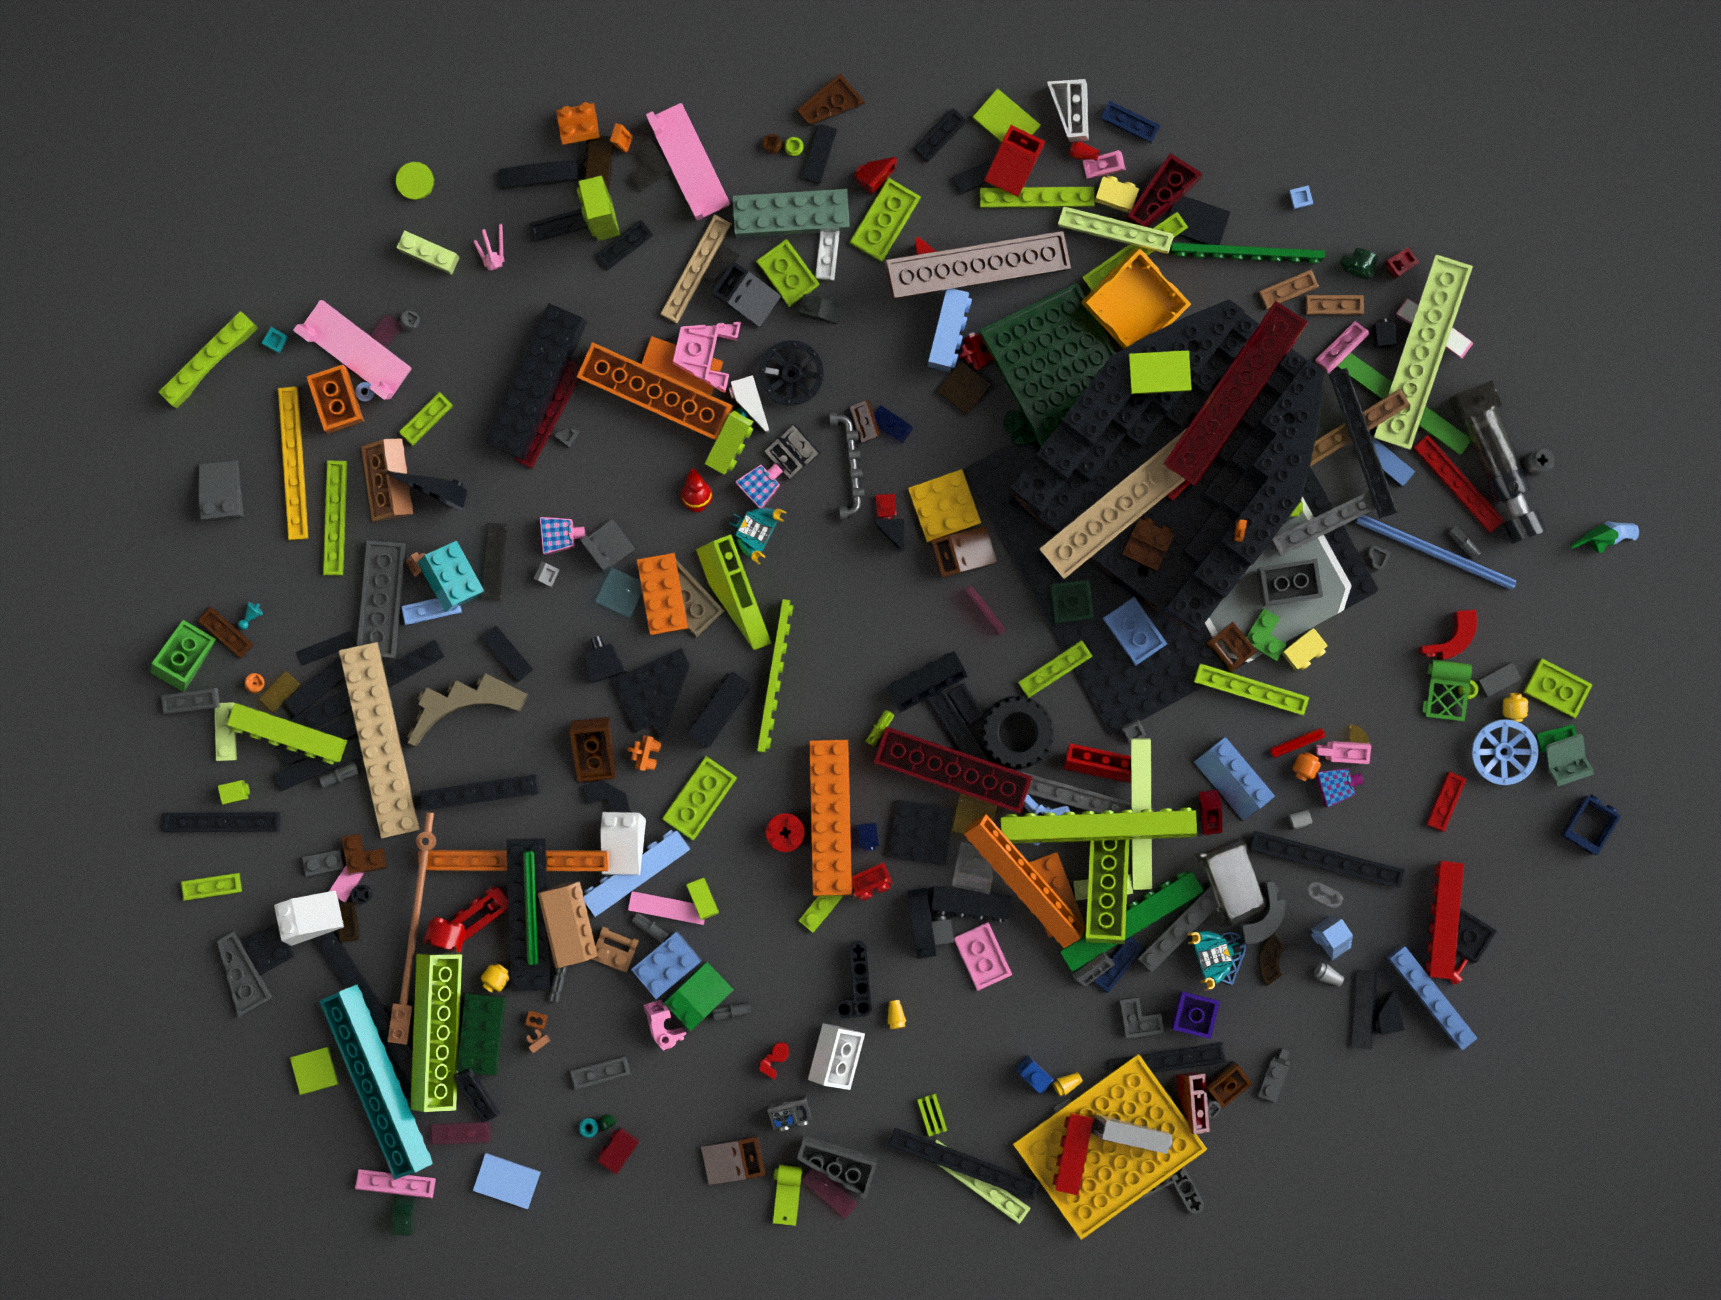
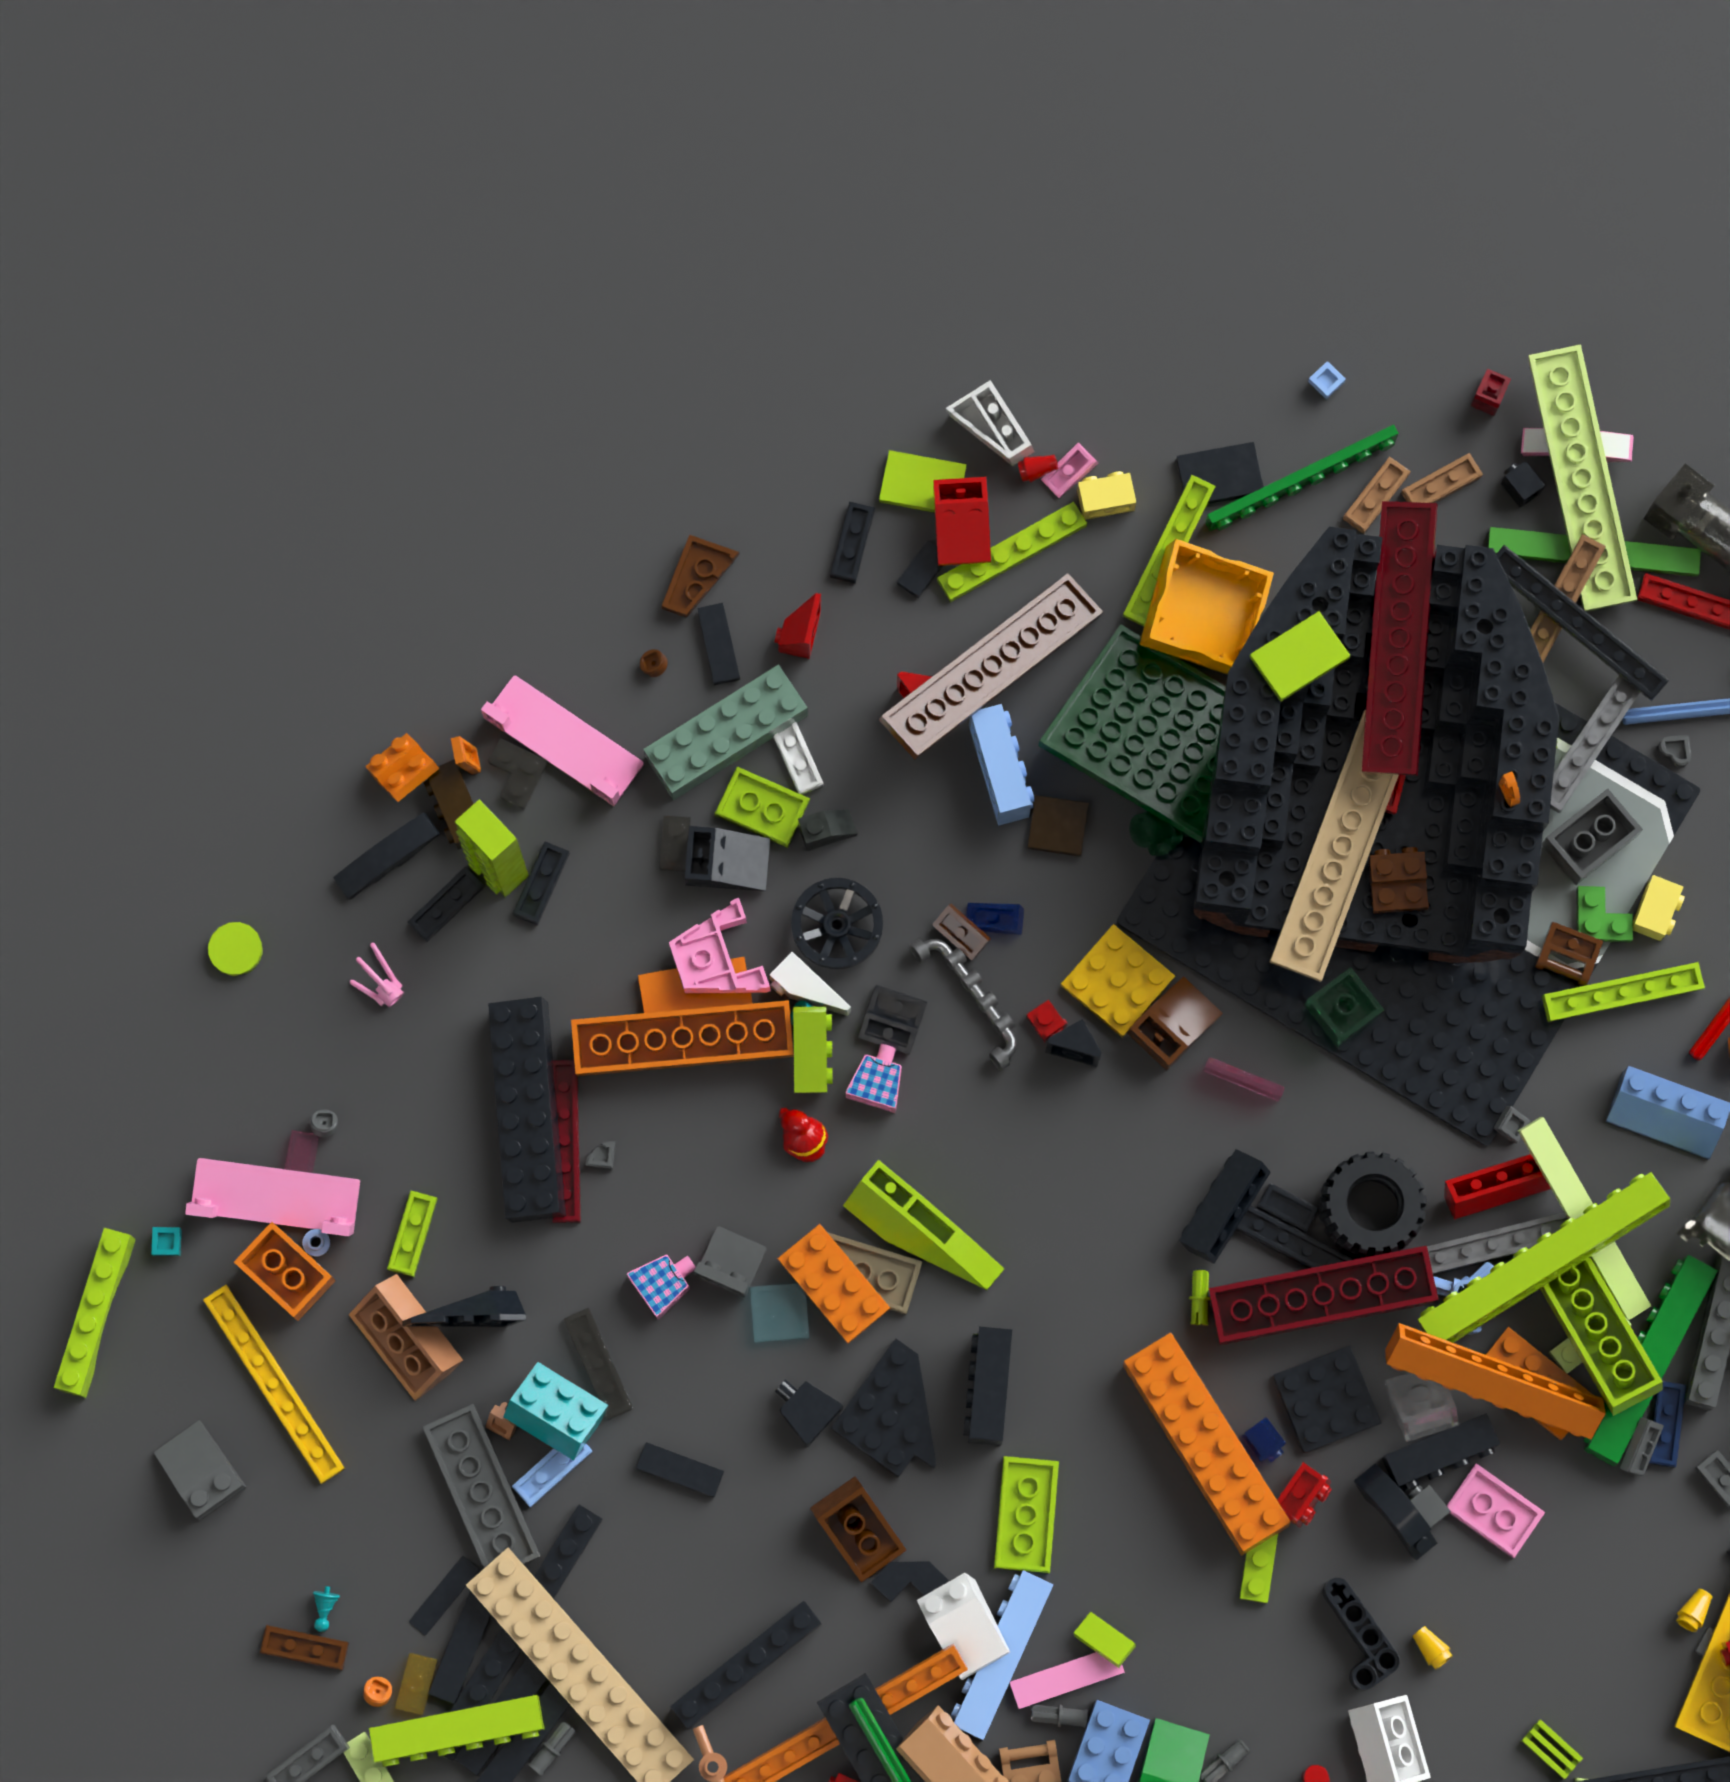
camera: 30 degrees left, 10 degrees down
(182, 655) = (265, 1709): bright green slope -> none
(335, 518) = (365, 1423): lime tile -> none
(428, 252) = (301, 1026): yellowish green brick -> none
(437, 706) = (629, 1585): dark tan arch -> none
(546, 574) = (673, 1341): light grey plate -> none
(641, 755) = (922, 1498): orange hips -> none
(695, 269) = (646, 864): tan tile -> none
(755, 530) = (904, 1139): torso -> none
(776, 668) = (1037, 1318): lime plate -> none
(777, 840) = (1159, 1478): red brick -> none
(793, 146) = (682, 652): lime plate -> none
(885, 220) = (844, 679): lime tile -> none
(969, 810) = (1370, 1338): clear yellow plate -> none
(973, 352) = (1045, 775): red hips -> none
(1034, 1074) = (1648, 1621): blue torso -> none
(1055, 669) = (1371, 1102): lime tile -> none
(1115, 230) = (1131, 536): yellowish green plate -> none
(1130, 122) = (1071, 403): dark blue plate -> none
(1134, 631) = (1440, 1001): medium blue tile -> none
(1164, 190) = (1162, 454): dark red wedge -> none
(1210, 812) = (1666, 1167): dark red slope -> none
(1342, 347) = (1483, 517): bright pink tile -> none
(1360, 264) = (1444, 417): clear green piece -> none
(1392, 465) = (1632, 632): medium blue tile -> none

